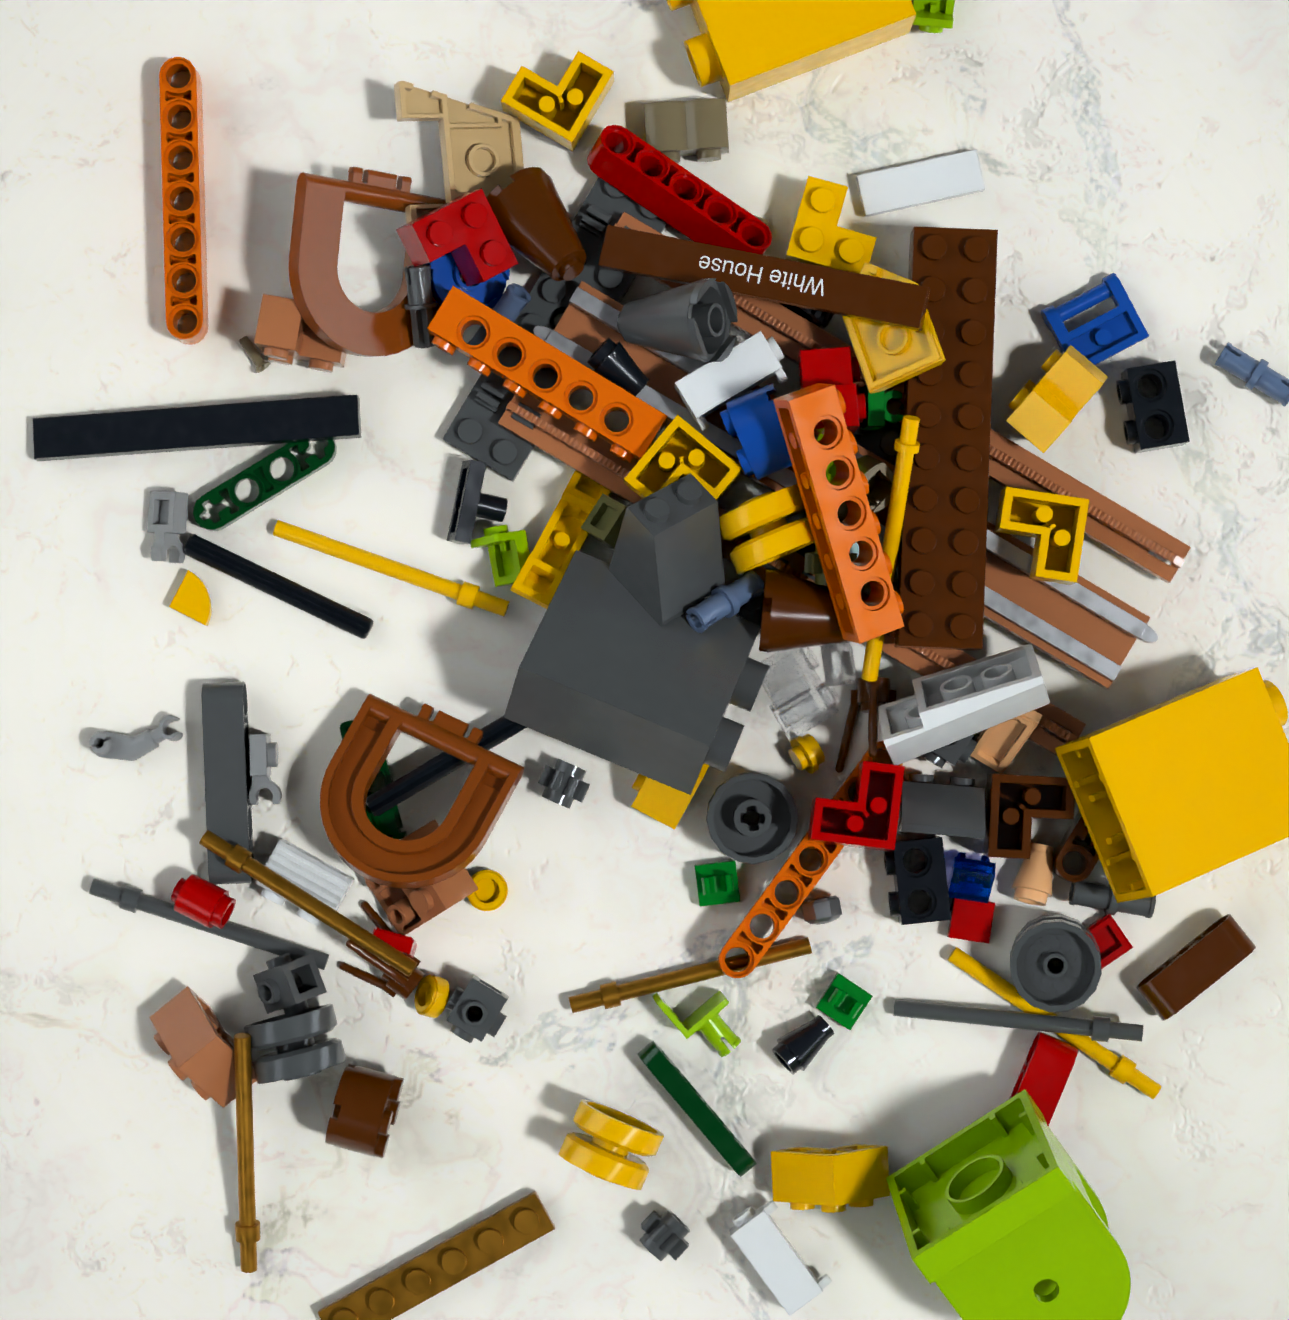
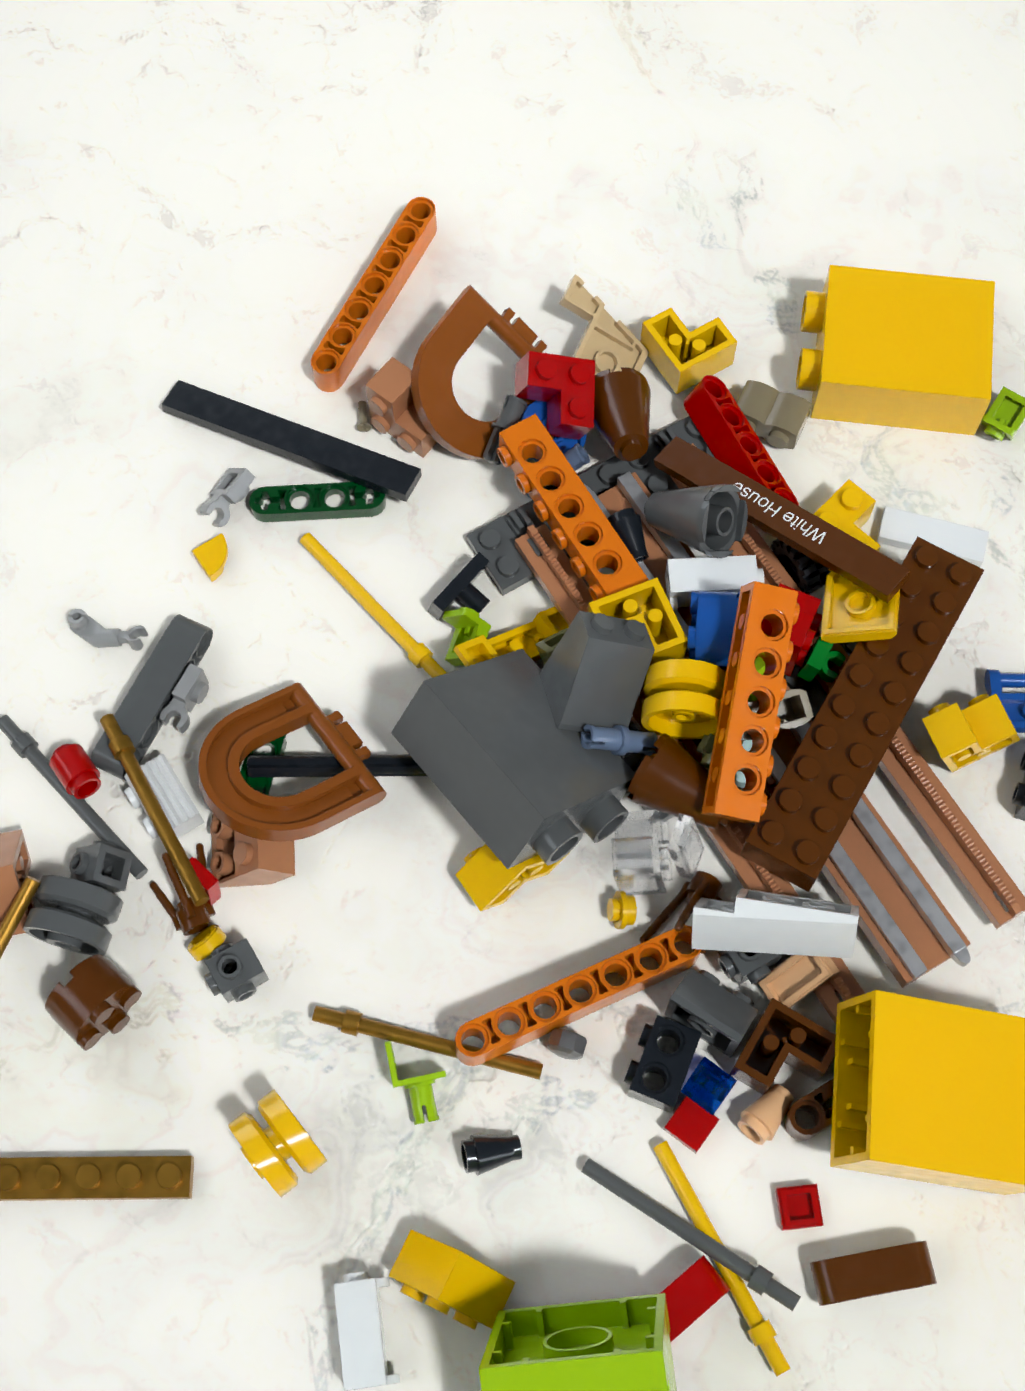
camera: 30 degrees right, 20 degrees down
(278, 586) = (282, 579): black axle -> none
(491, 890) = (303, 886): yellow tile -> none
(564, 783) = (411, 830): dark grey gear -> none
(664, 1235) = (277, 1254): dark grey gear -> none
(697, 1108) = (369, 1159): dark green beam -> none
(717, 883) = (491, 978): green tile -> none
(776, 818) = (552, 912): dark grey wheel -> none
(843, 1001) = (545, 1135): green tile -> none
(867, 821) = (641, 973): red brick -> none
(906, 448) = (785, 752): yellow bar -> none
(1055, 938) = (753, 1221): dark grey wheel -> none
(1056, 525) = (921, 810): yellow brick -> none
(1102, 897) = (819, 1168): dark grey pin -> none

